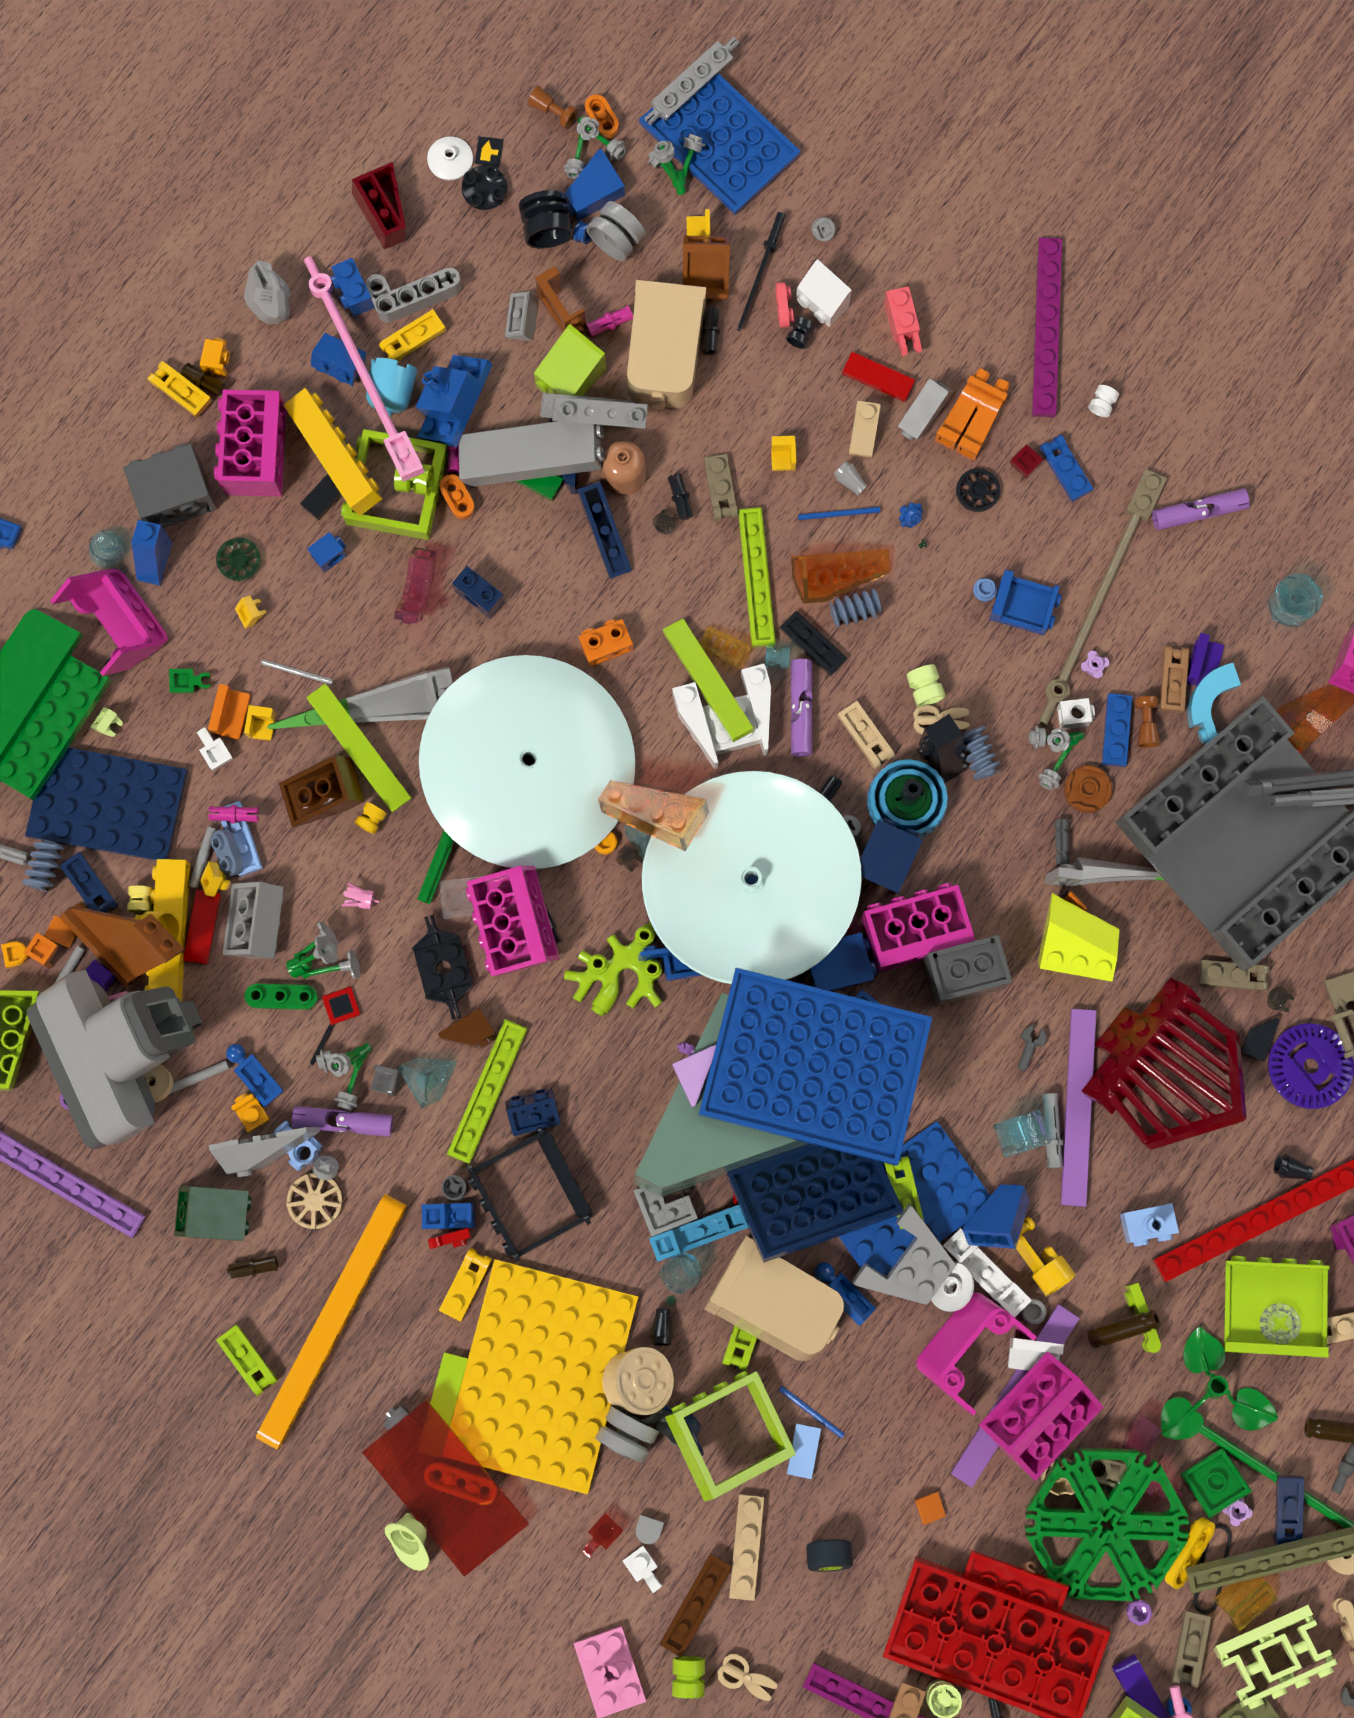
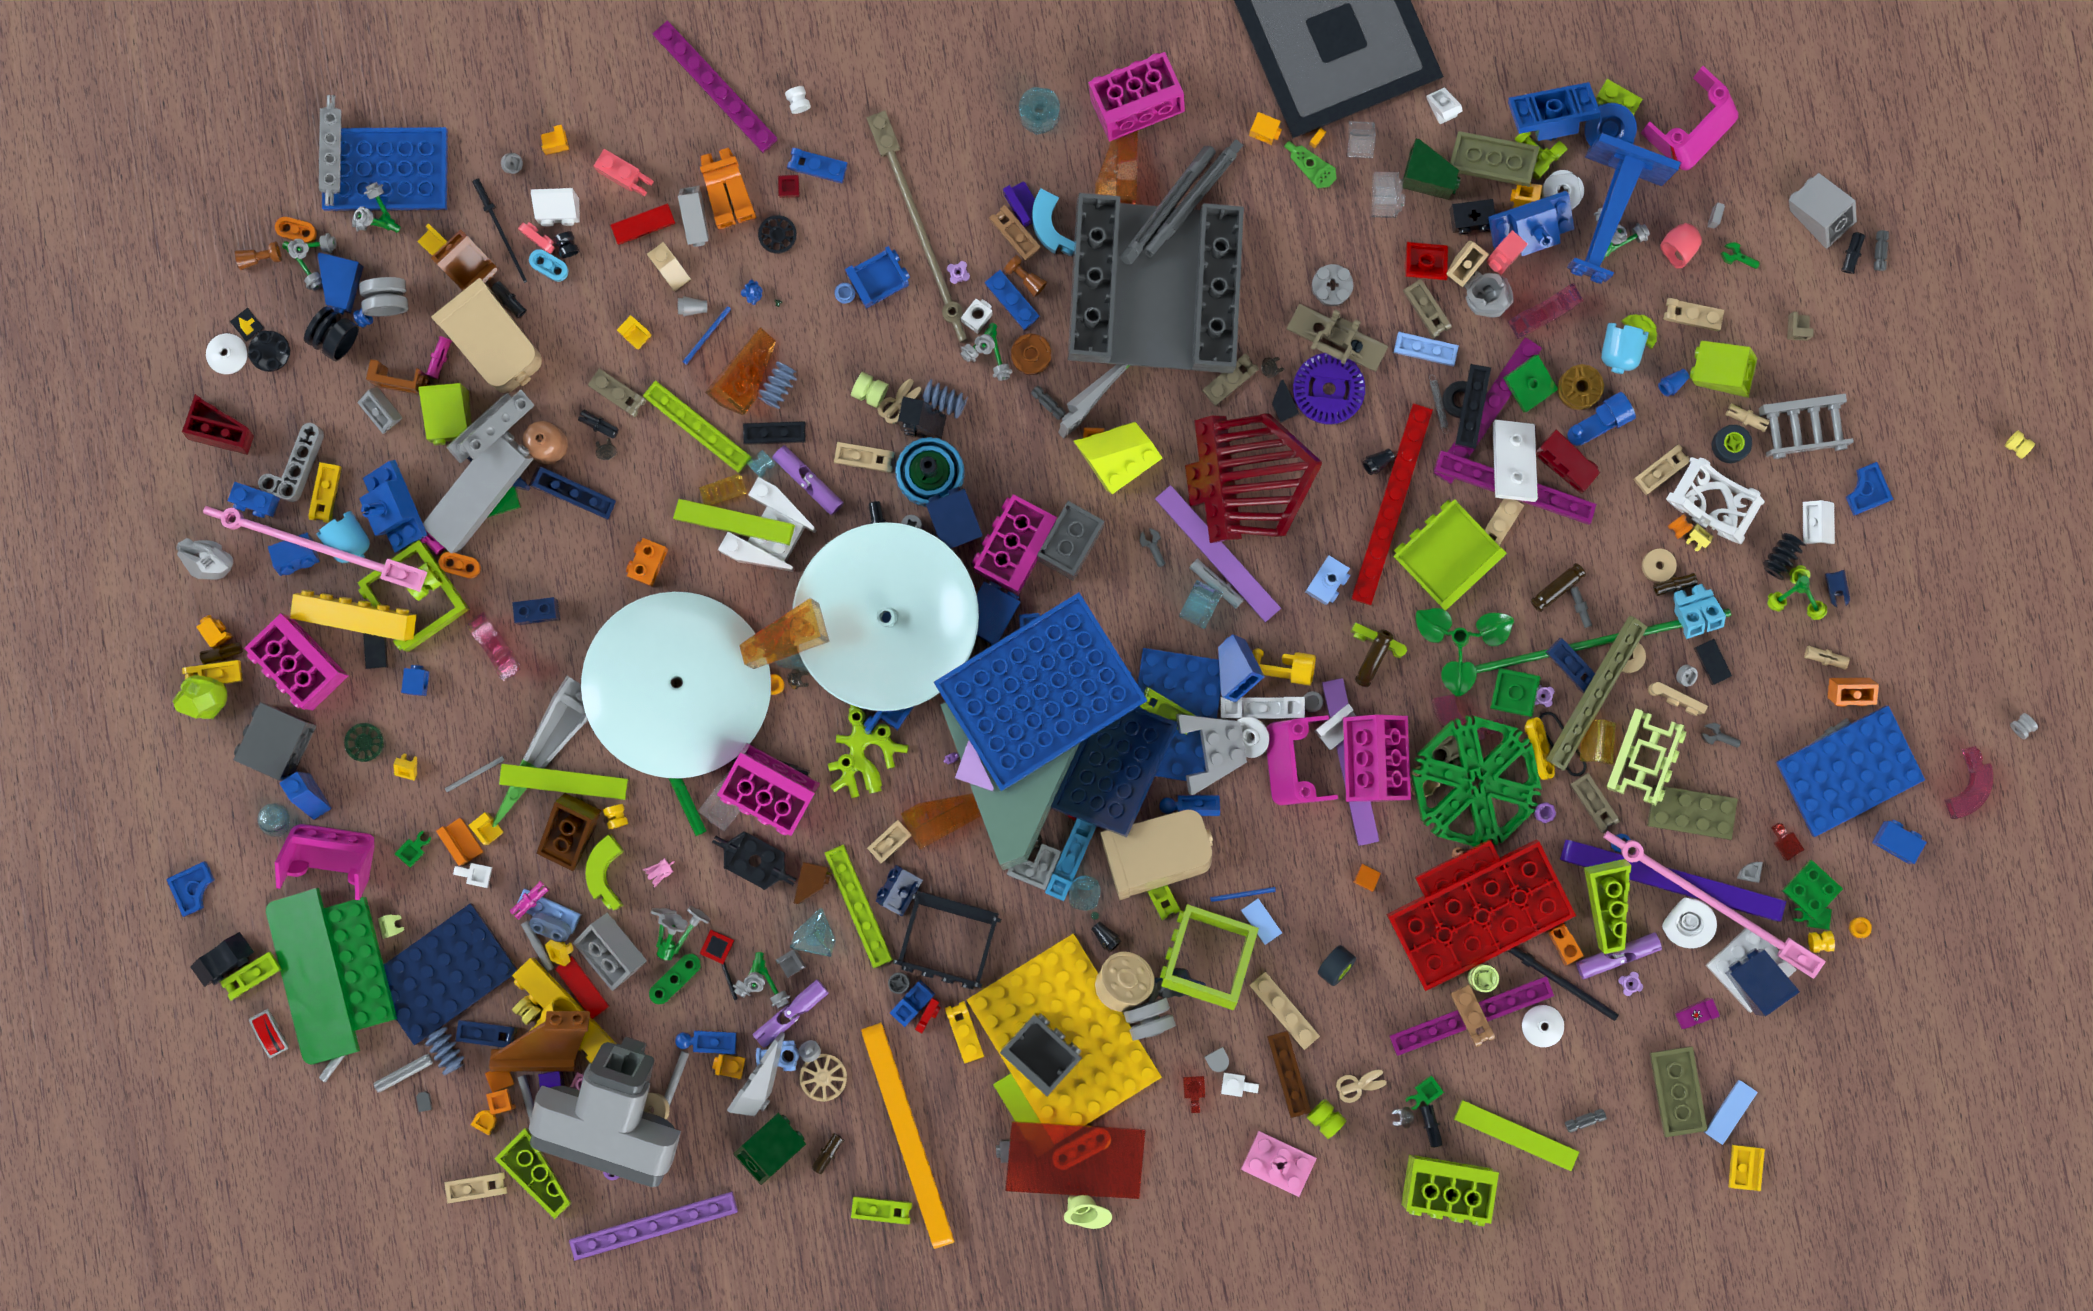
camera: 45 degrees left, 5 degrees up
(151, 397) = (200, 697): none -> lime helmet
(310, 845) = (597, 868): none -> lime arch
(508, 1369) = (1041, 1053): none -> dark grey container
(566, 1064) = (889, 841): none -> tan plate
(625, 1087) = (939, 818): none -> clear orange wedge
(770, 336) = (549, 265): none -> medium azure plate
(875, 245) = (554, 141): none -> light orange panel
(1197, 510) = (923, 113): medium lavender piece -> none
(1292, 1322) = (1466, 553): clear gear -> none

